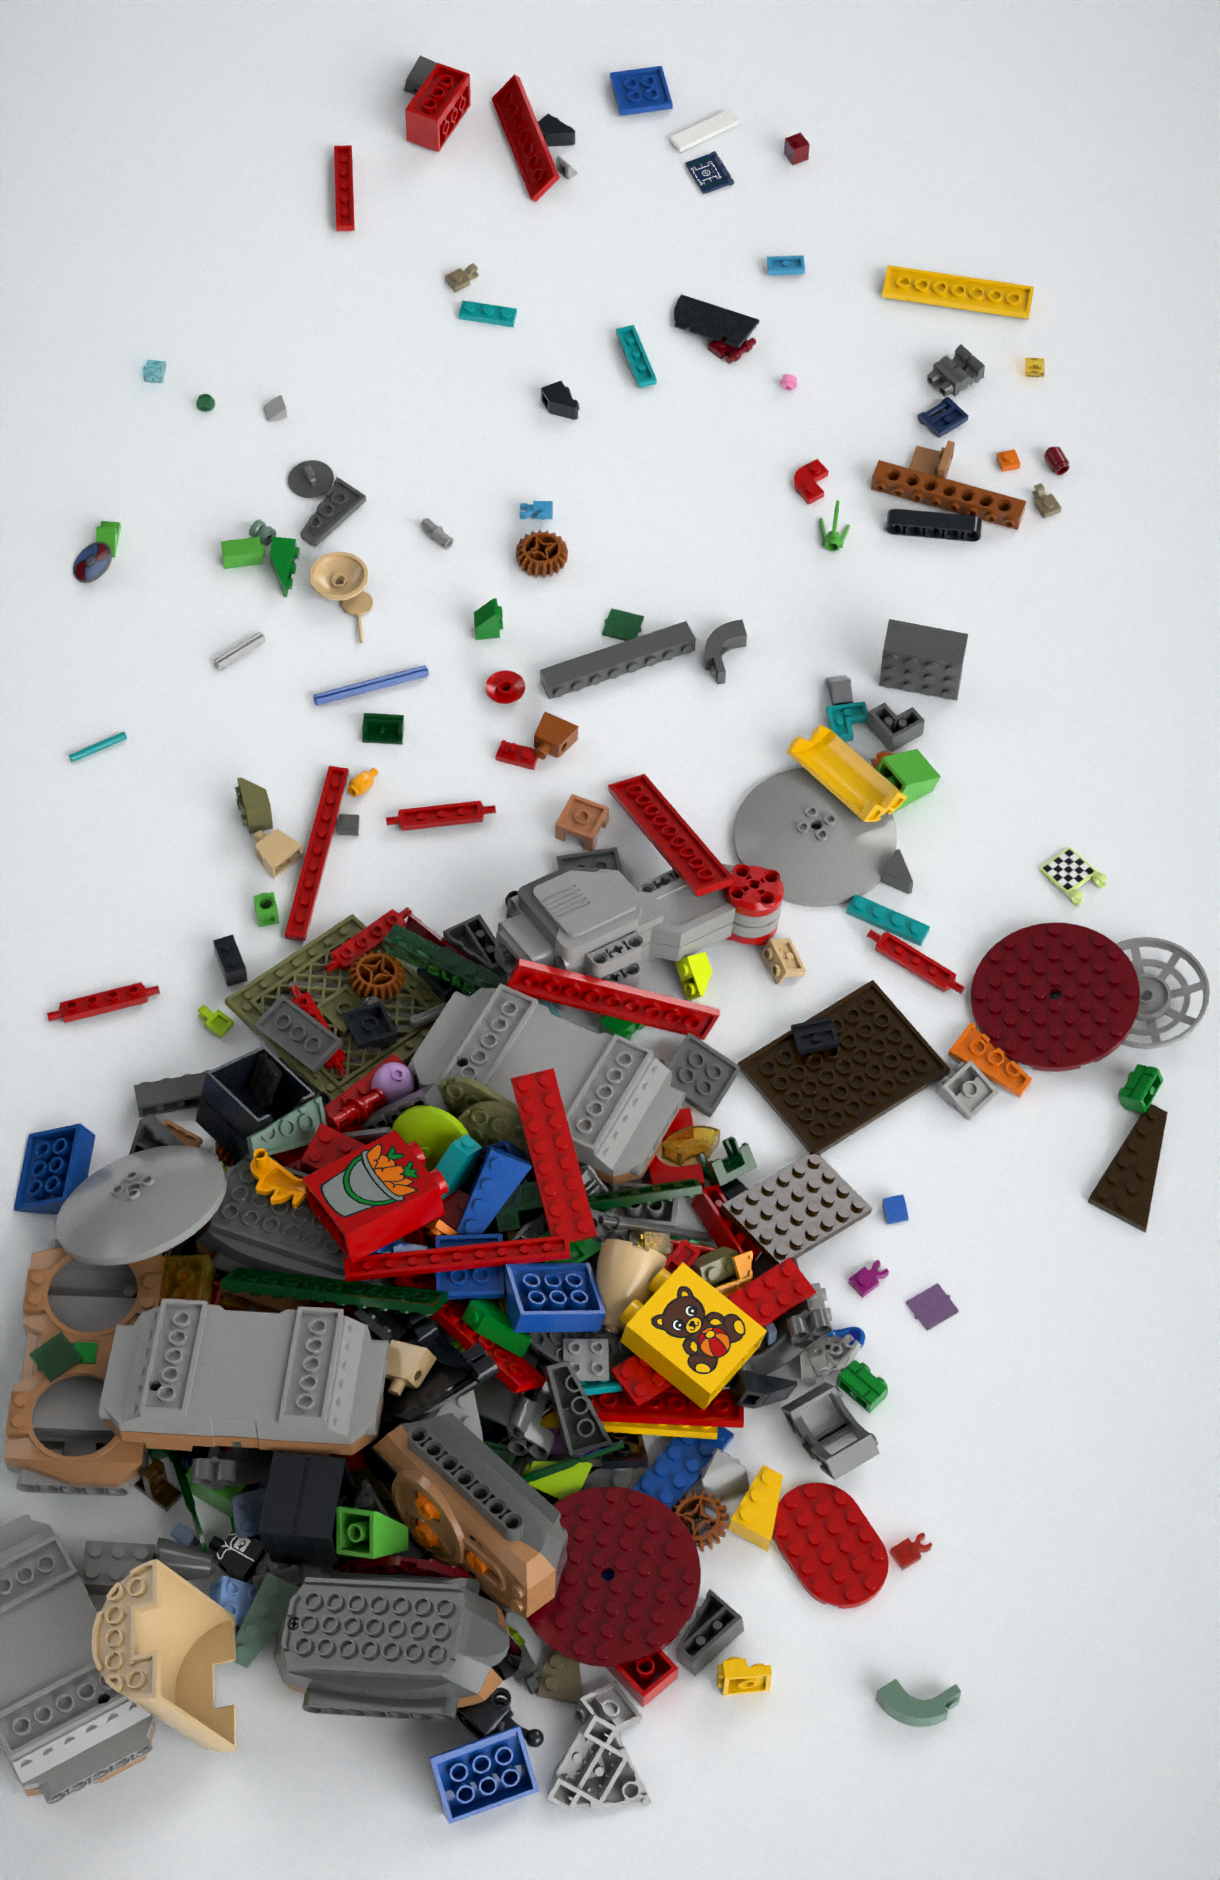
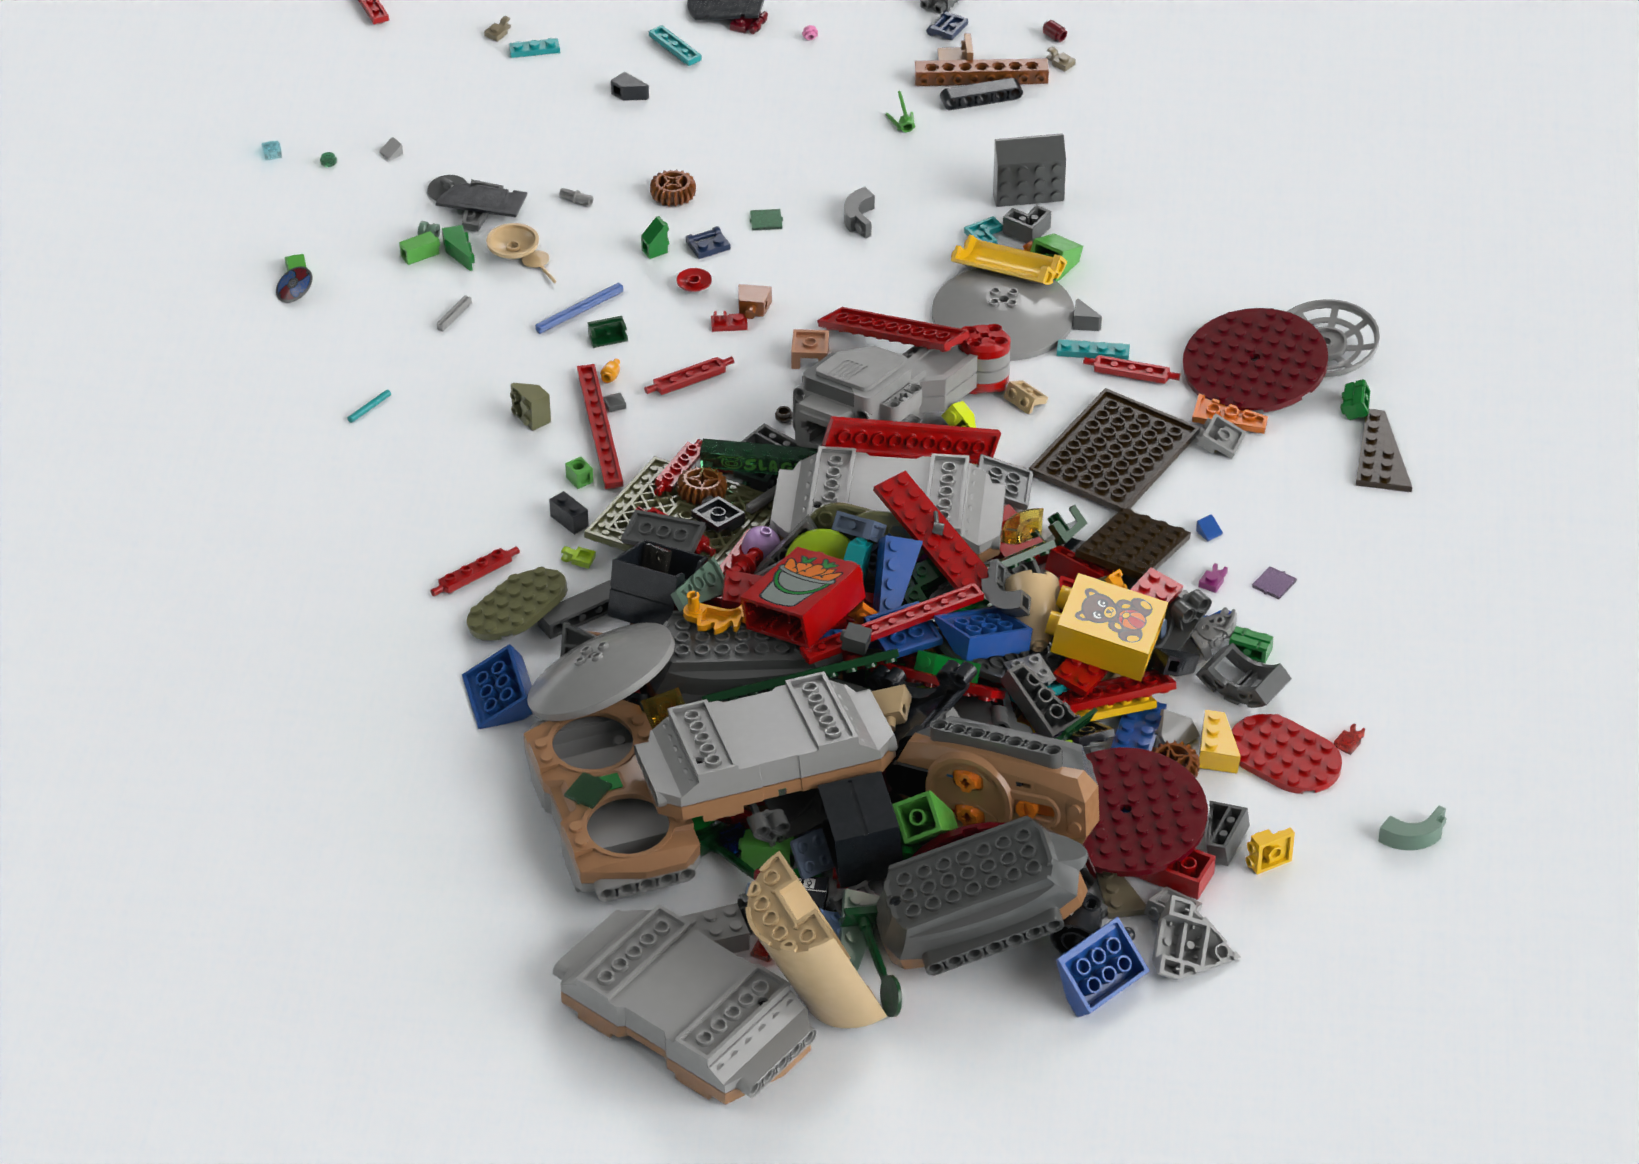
camera: 20 degrees left, 15 degrees down
(120, 1066) = (517, 604): none -> olive plate
(156, 1486) = (711, 871): dark brown bracket -> none
(266, 1617) = (890, 987): none -> dark green piece
(276, 851) = (565, 433): tan torso -> none
(336, 509) = (483, 199): none -> black piece
(402, 1271) = (856, 638): none -> dark grey brick
(484, 1128) = (858, 526): none -> sand blue bracket
(539, 510) = (654, 161): dark azure plate -> none
(546, 644) = (709, 246): none -> dark blue plate
(555, 1155) = (937, 527): none -> dark grey hand
(588, 1256) = (1010, 603): none -> dark grey arch
(617, 660) = (776, 240): dark grey brick -> none
(806, 479) = (862, 91): red plate -> none
(815, 1036) = (1082, 432): black plate -> none
(839, 690) = (968, 214): slope -> none
(1008, 460) = (1015, 41): orange plate -> none
(1071, 871) = (1221, 284): flag -> none

